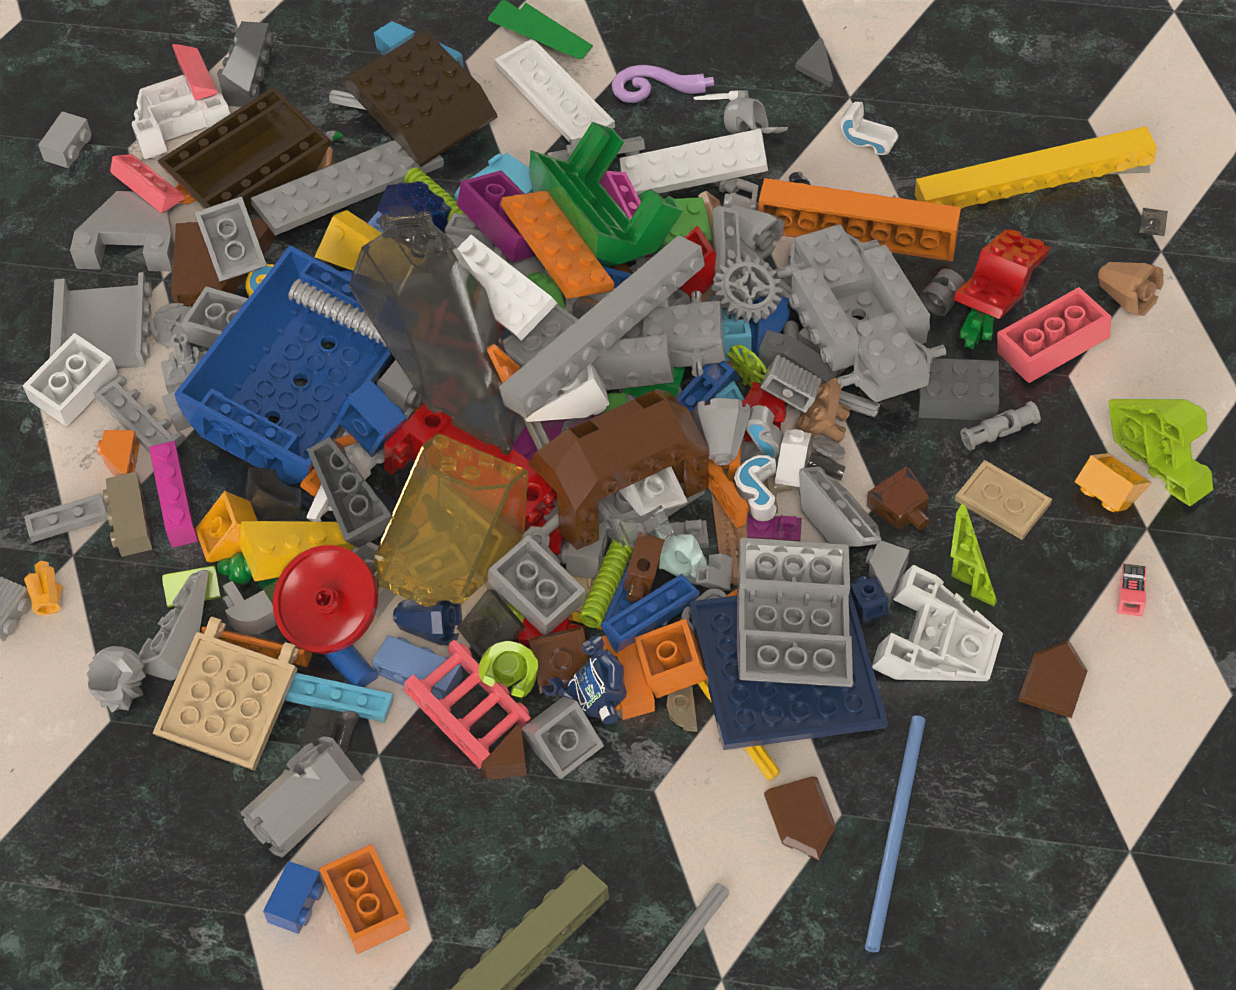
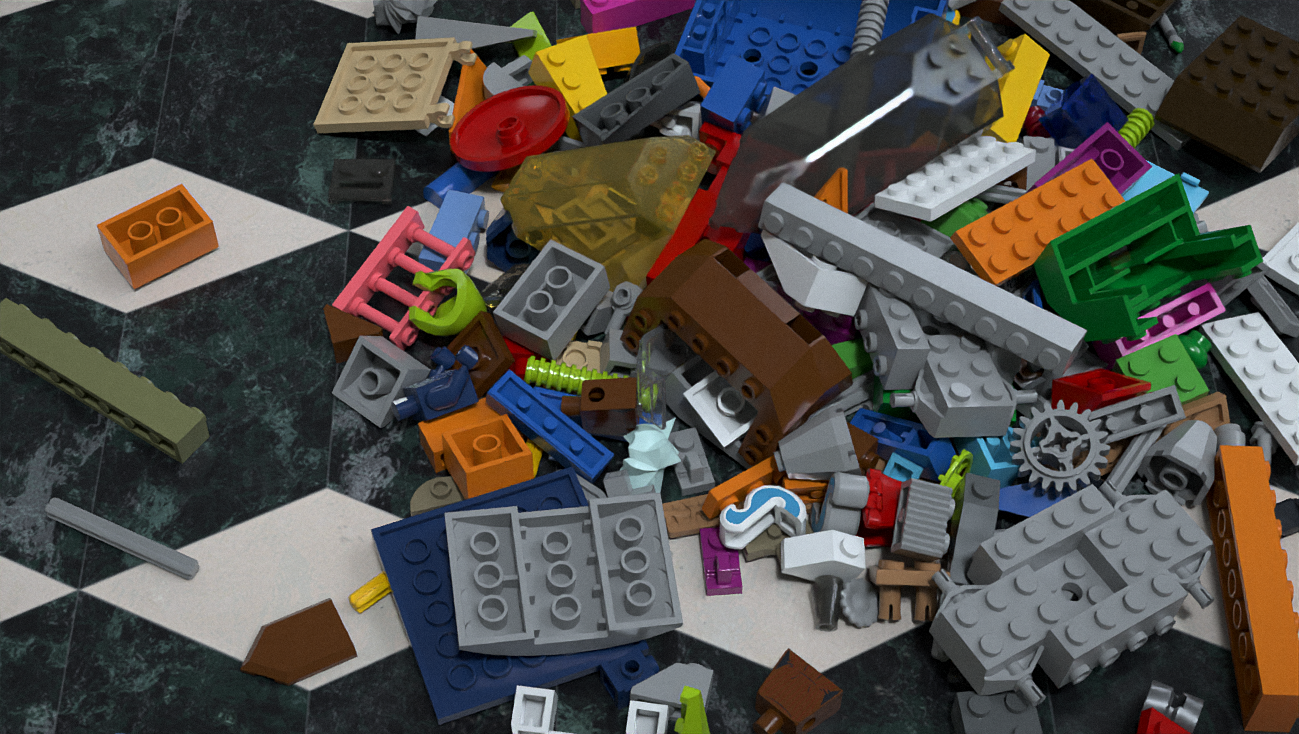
camera: 75 degrees right, 5 degrees down
(294, 897) = (155, 176): blue brick -> none
(303, 796) = (273, 161): light grey brick -> none
(340, 697) = (411, 171): medium azure plate -> none
(835, 510) = (756, 623): light grey wedge -> none

